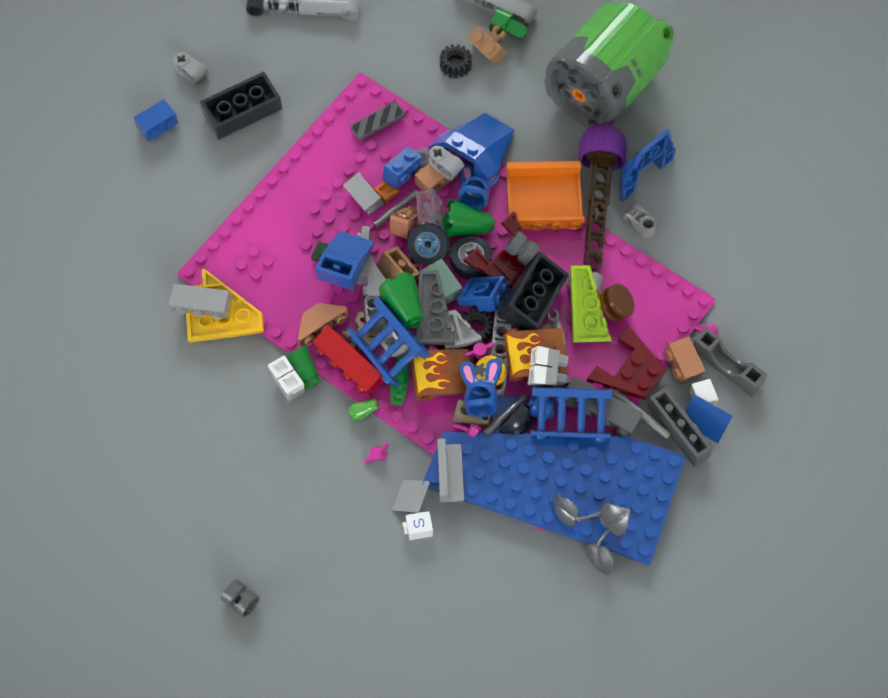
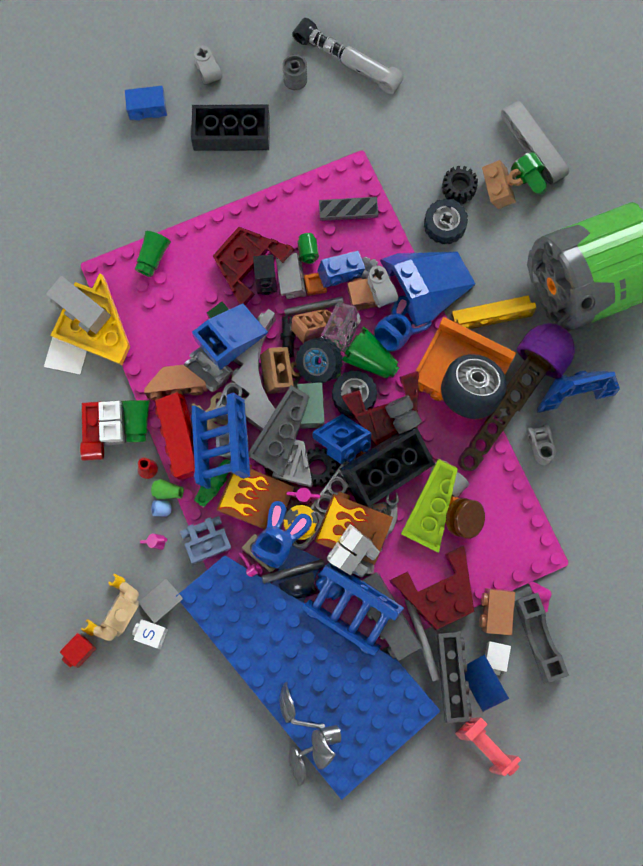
camera: 30 degrees right, 10 degrees up
(208, 353) = (65, 357): none -> white sticker
(236, 232) = (151, 253): none -> green plant
(268, 38) = (295, 72): none -> dark grey wheel
(271, 396) = (91, 446): none -> red plate
(313, 195) = (237, 254): none -> dark red wing
(335, 401) = (149, 471): none -> red cone
(340, 296) = (207, 370): none -> light grey hinge
(343, 201) = (265, 274): none -> black brick
(364, 166) = (308, 248): none -> green brick
(366, 570) = (77, 651): none -> red brick
(368, 427) = (161, 508): none -> light blue piece
(384, 523) = (119, 613): none -> tan torso
(388, 240) = (287, 335): none -> black pin
(403, 298) = (257, 407): green cone -> none
(423, 433) = (208, 545): none -> sand blue plate
(450, 472) = (204, 601): light grey panel -> none
(469, 94) = (440, 230): none -> black wheel
(545, 141) = (494, 312): none -> yellow fence
(563, 200) = (473, 386): none -> black wheel
(738, 454) = (474, 731): none -> coral fence

